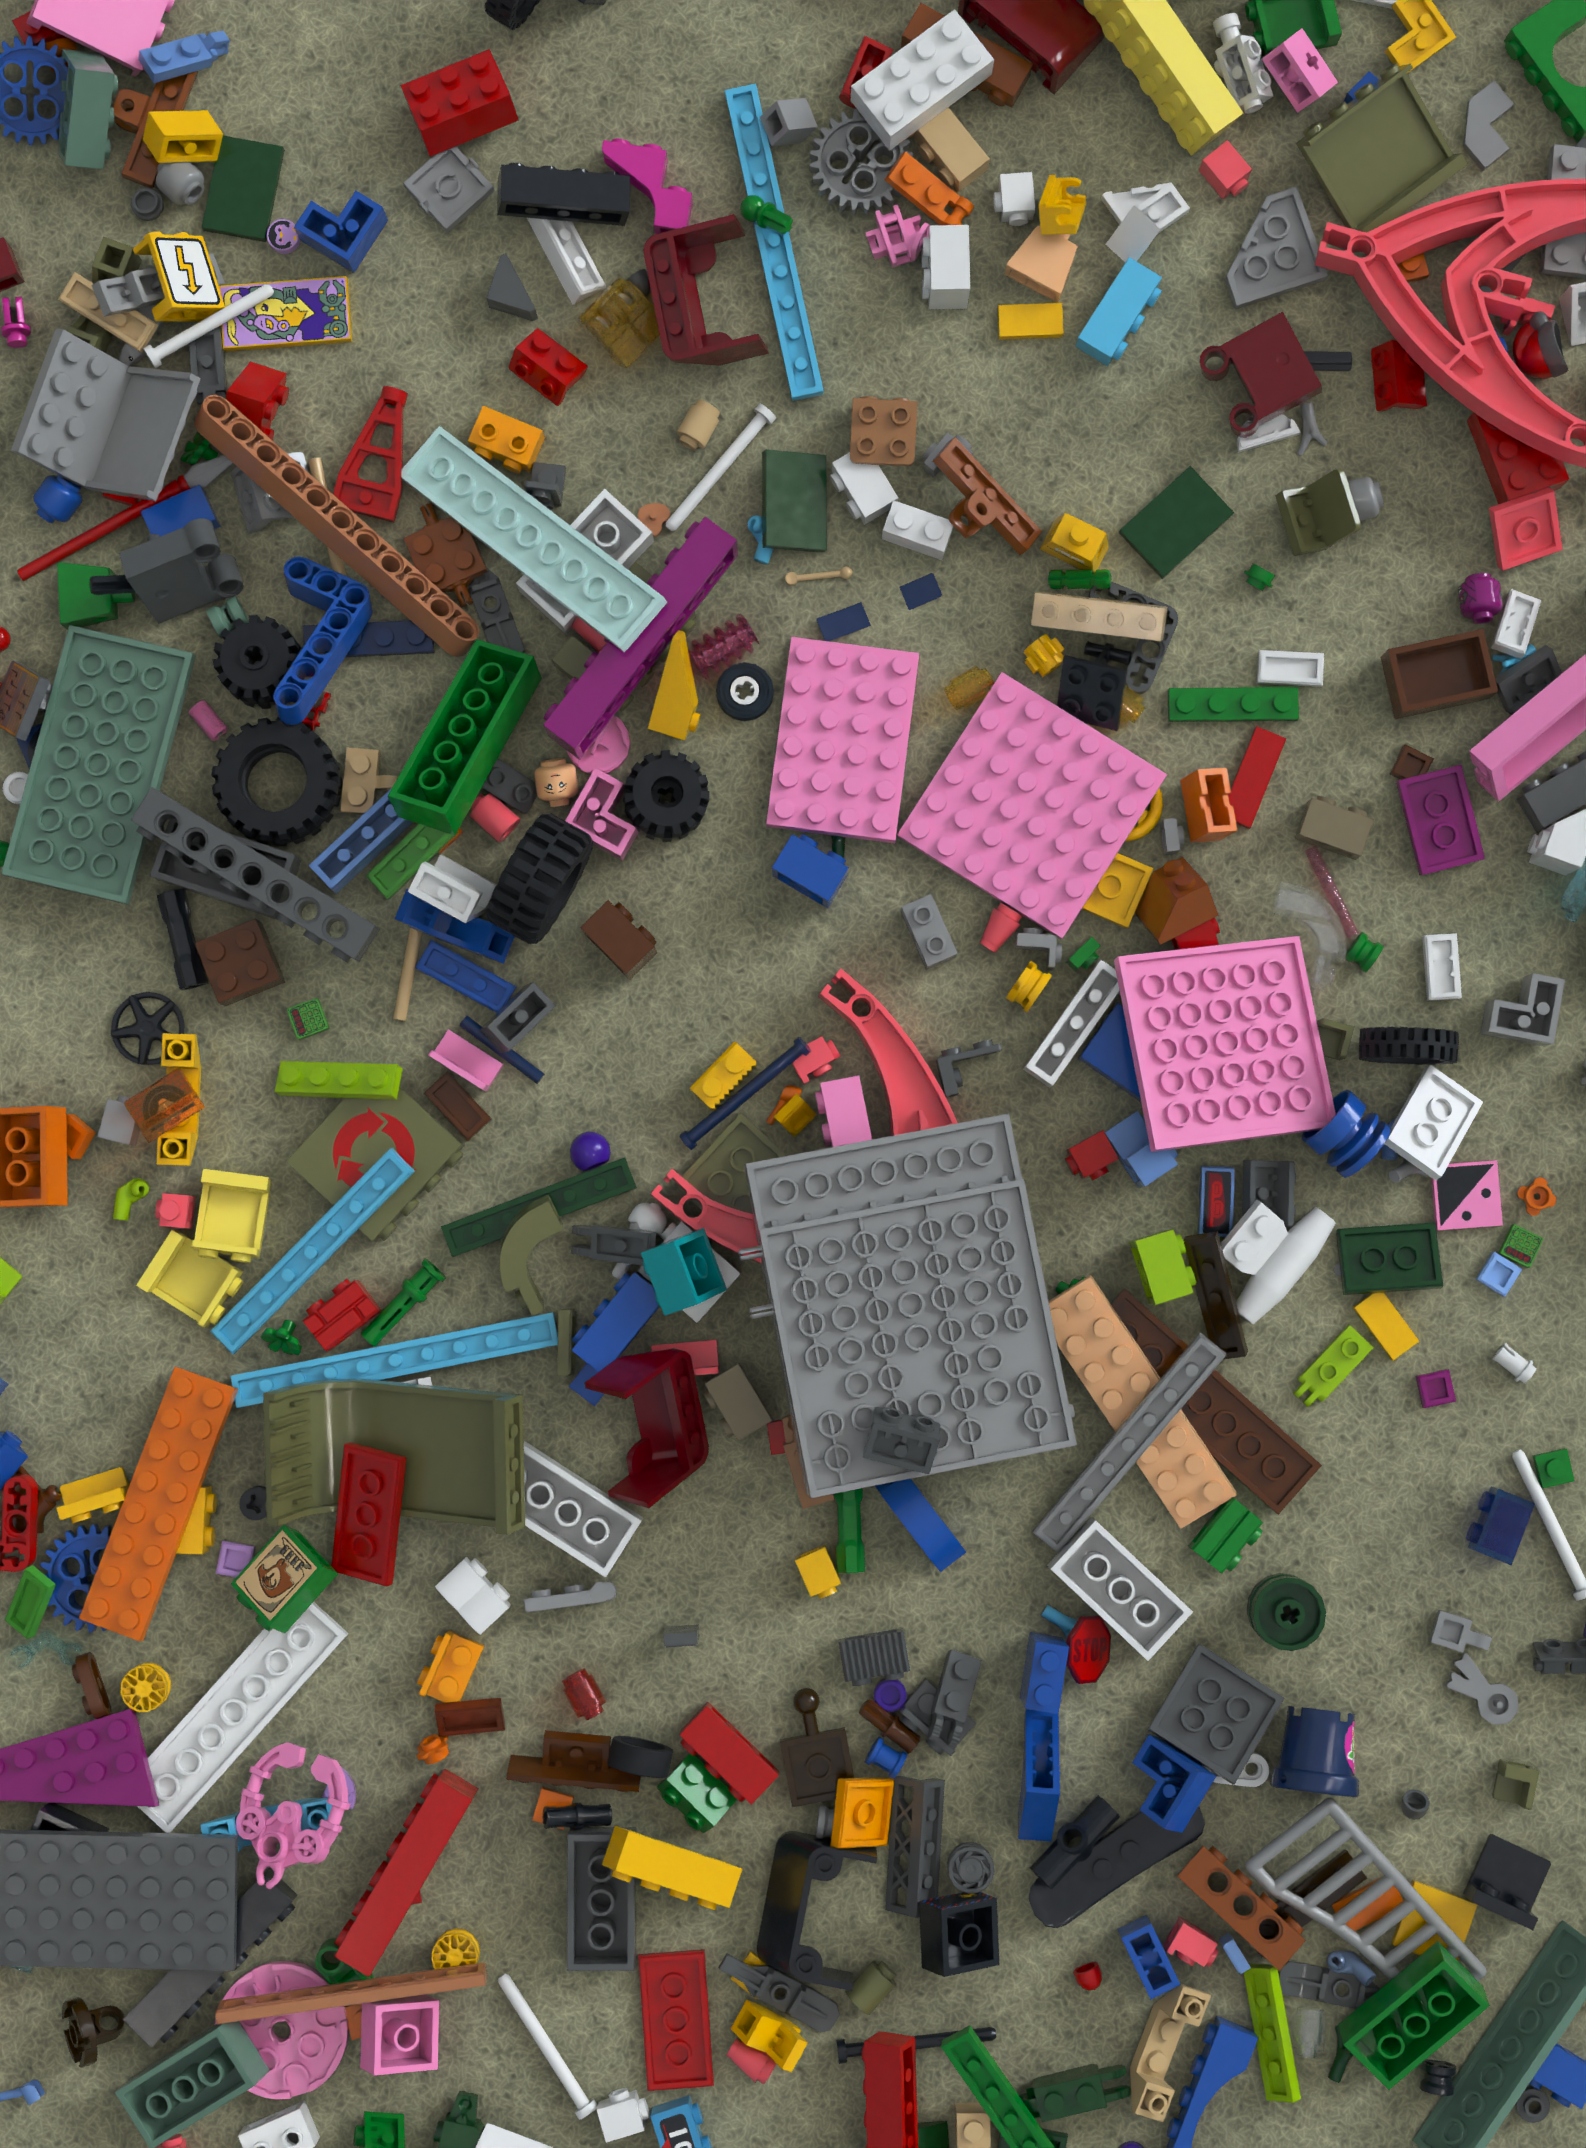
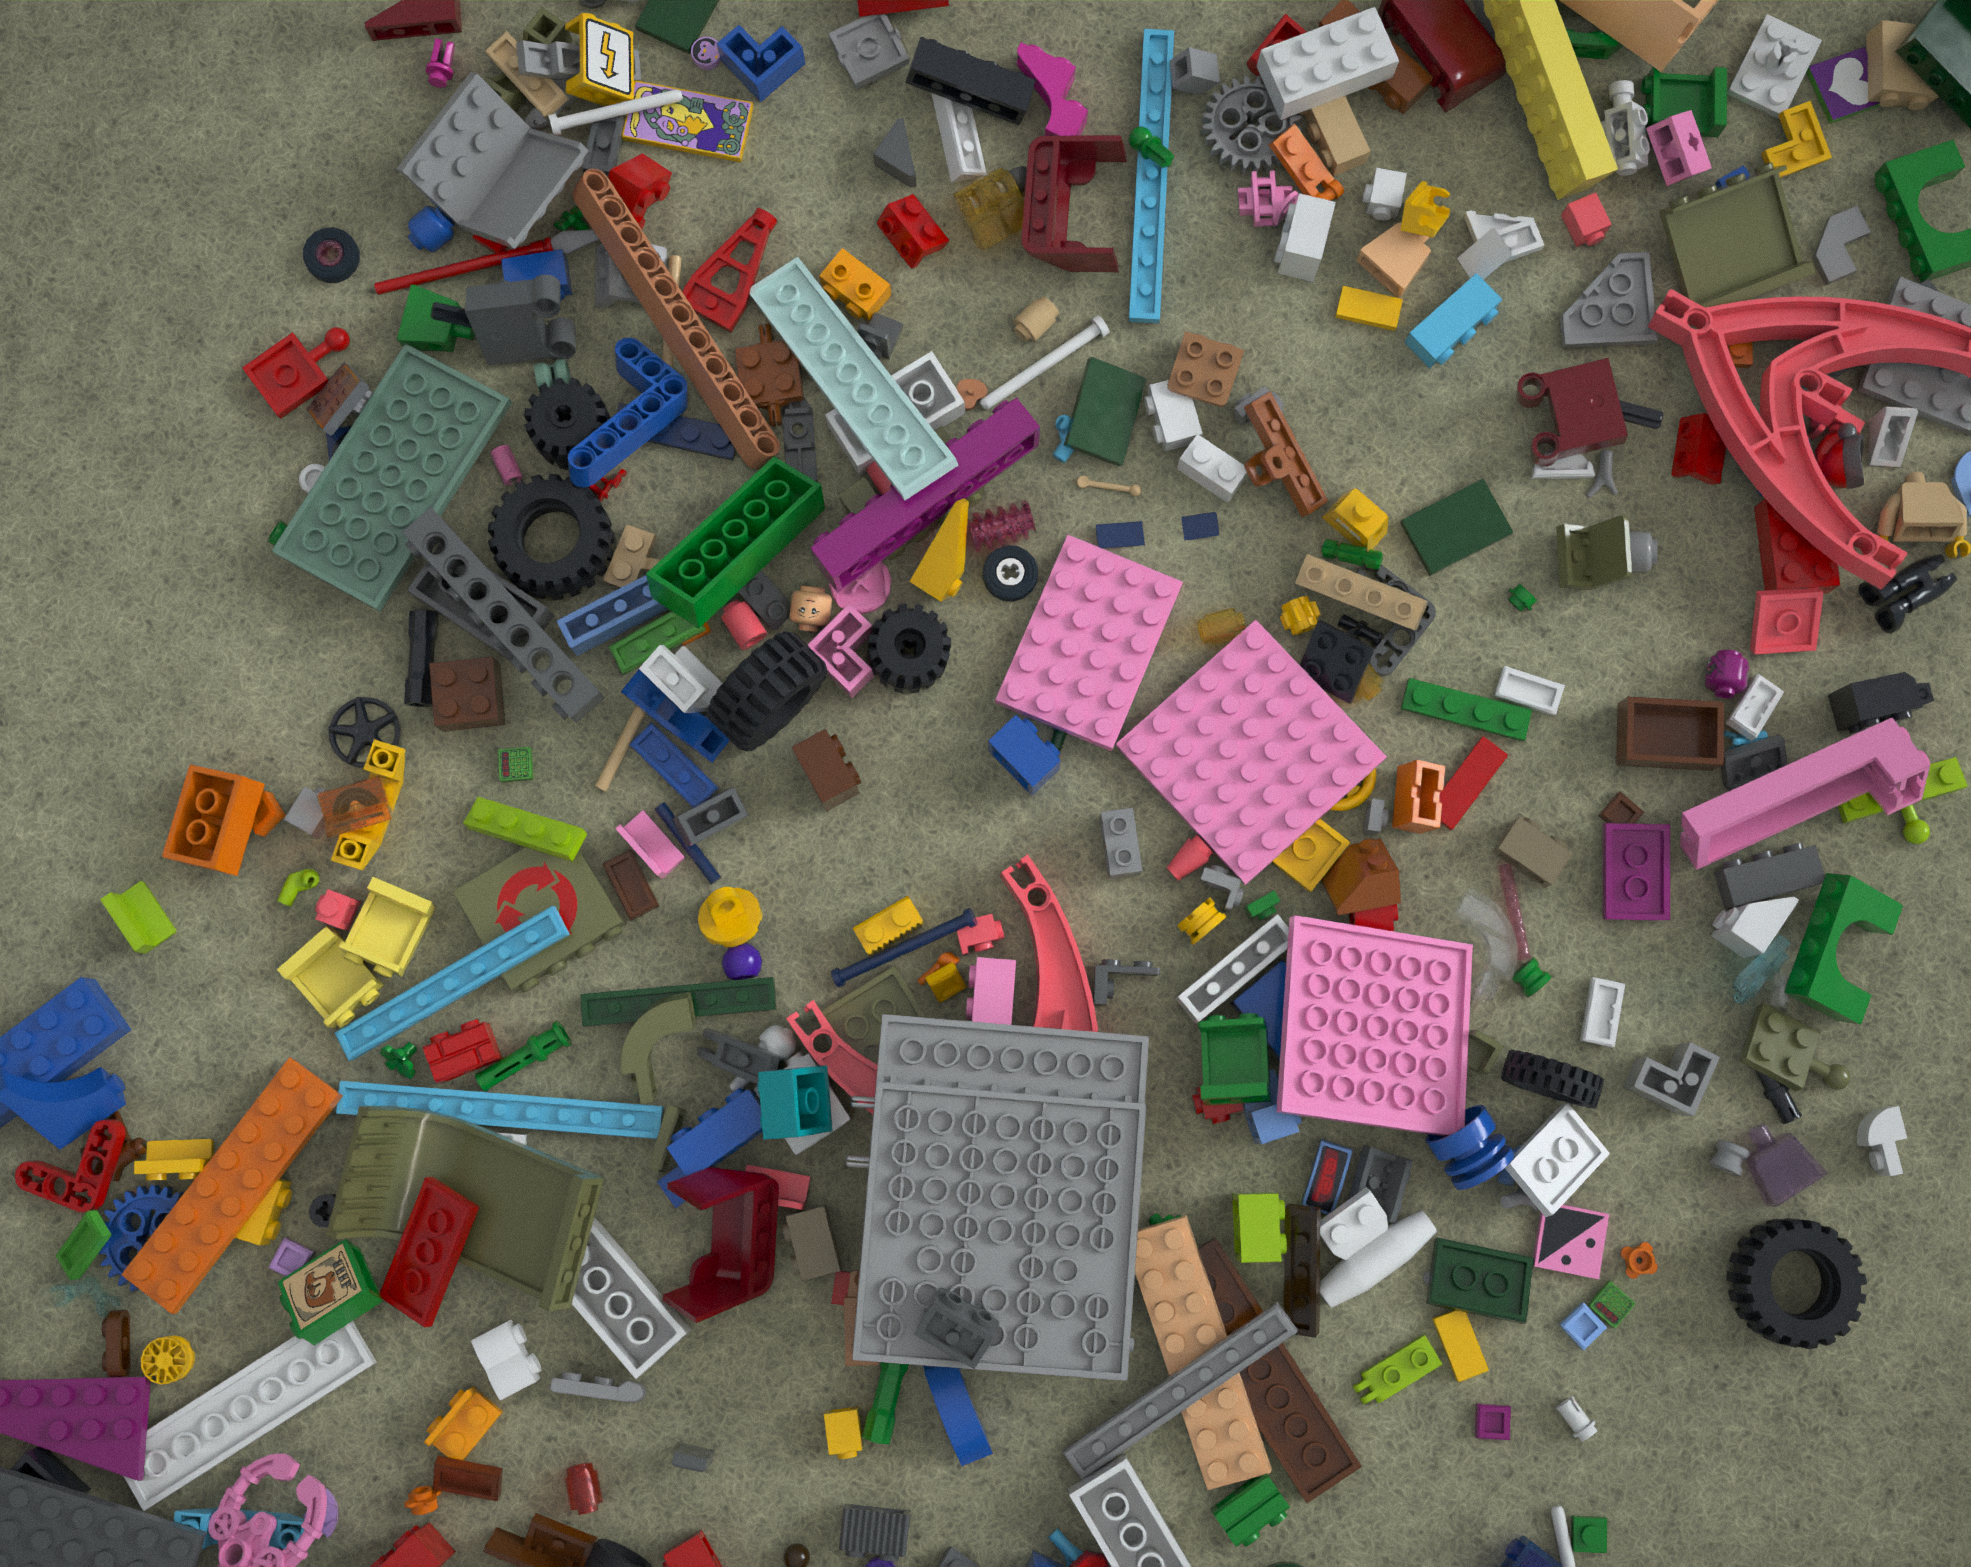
camera: 15 degrees right, 5 degrees down
(565, 1110) = (729, 916): none -> yellow tile
(1097, 1113) = (1235, 1060): none -> green panel

